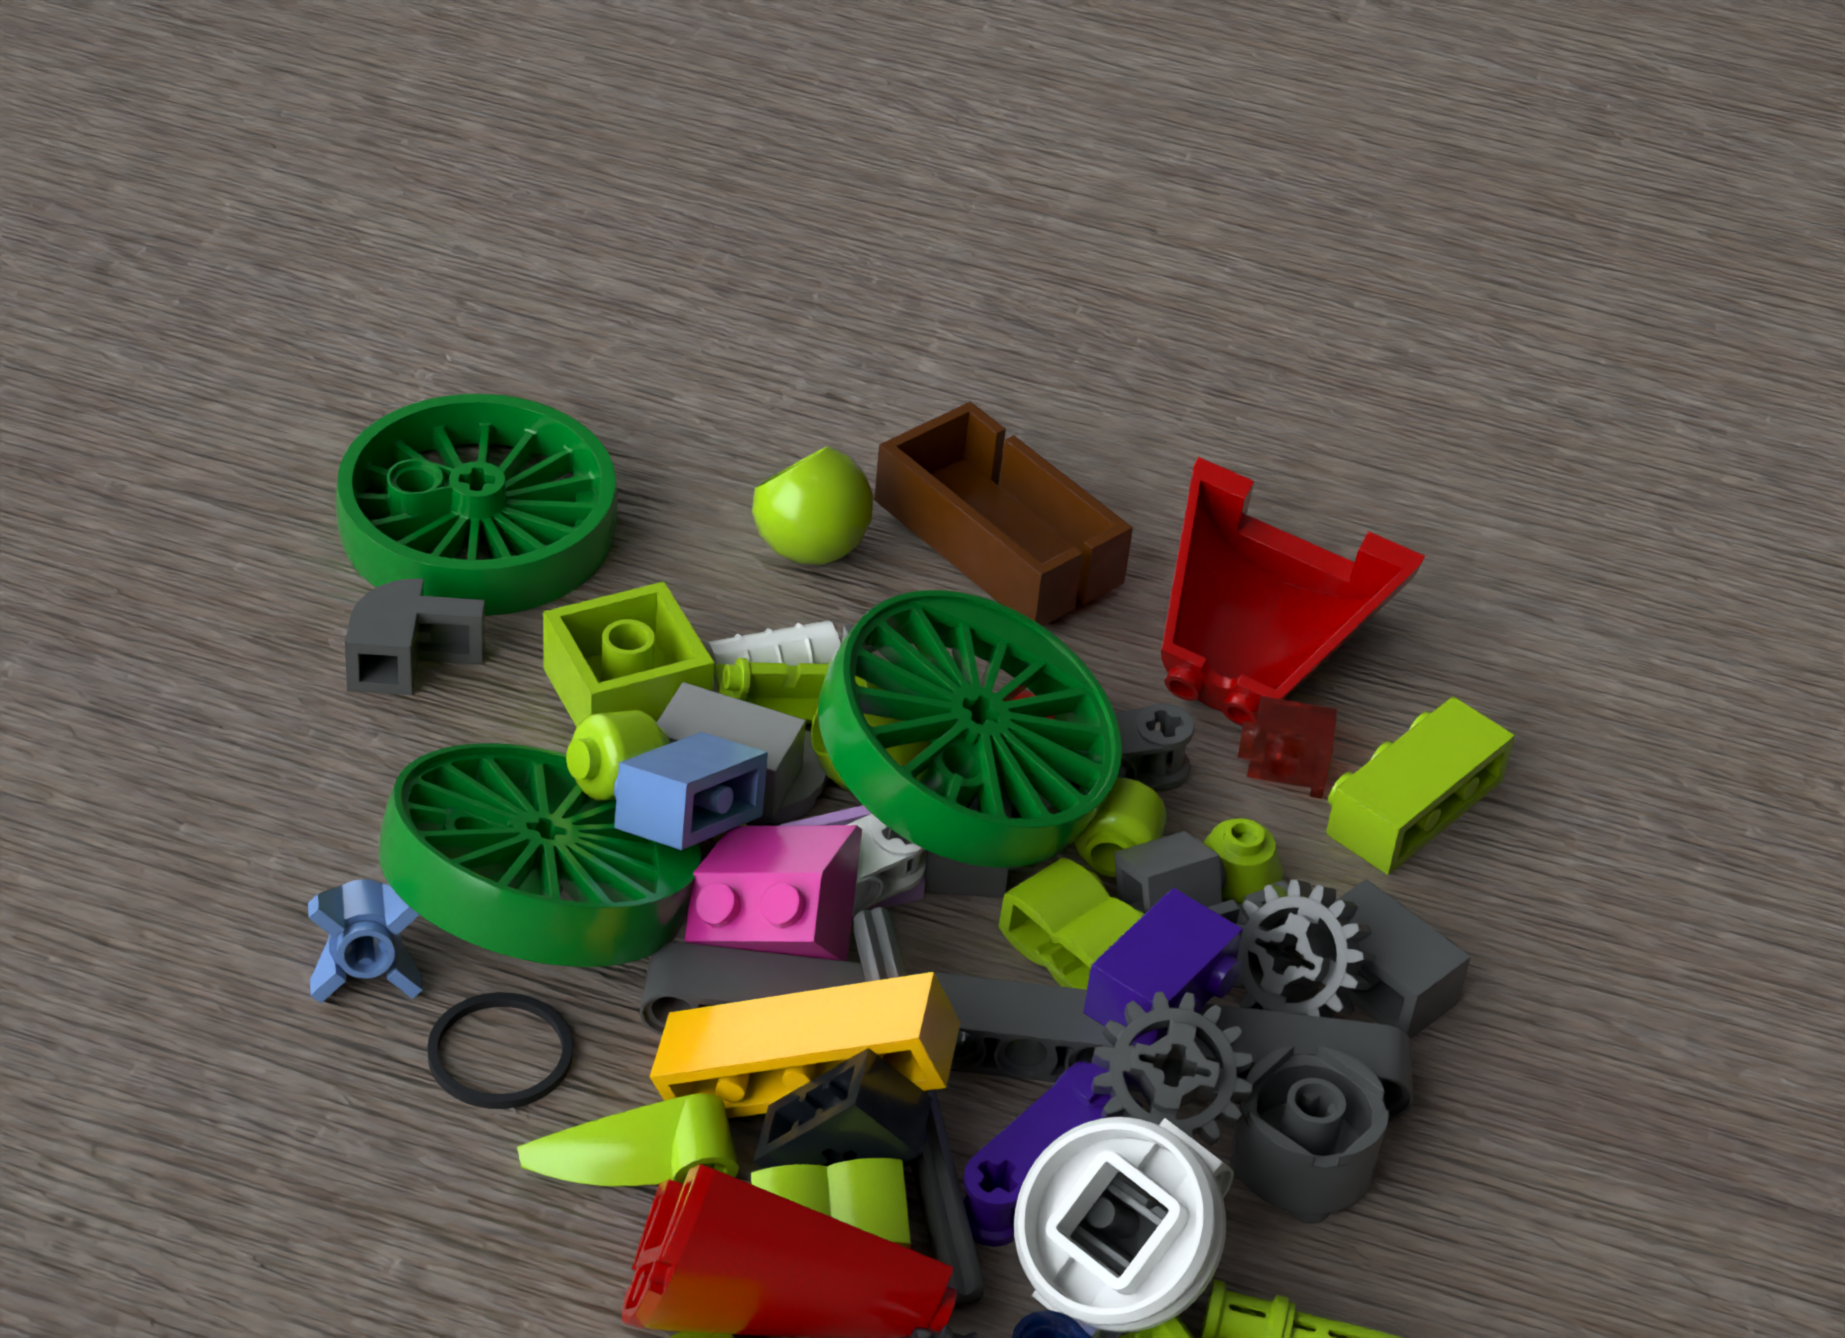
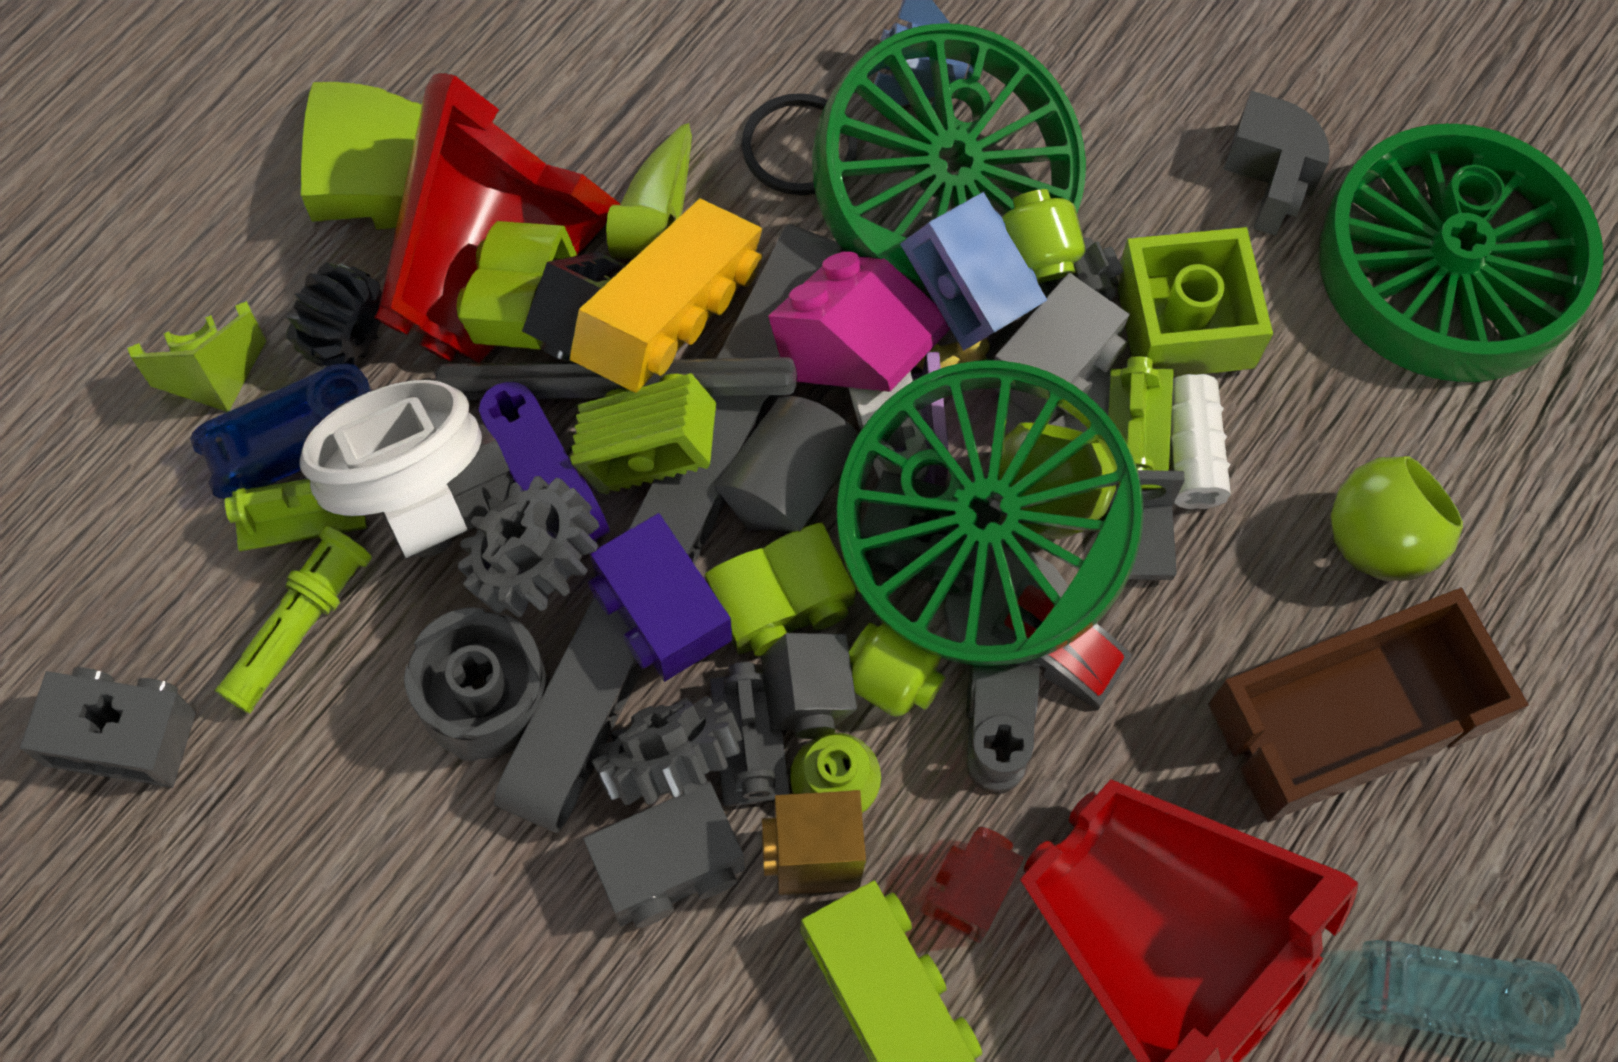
camera: 110 degrees right, 25 degrees up
(958, 931) = (787, 465): none -> dark grey brick
(995, 1047) = (644, 433): none -> lime brick
(1207, 424) = (1468, 996): none -> clear light blue piece
(1328, 822) = (815, 842): none -> pearl gold brick

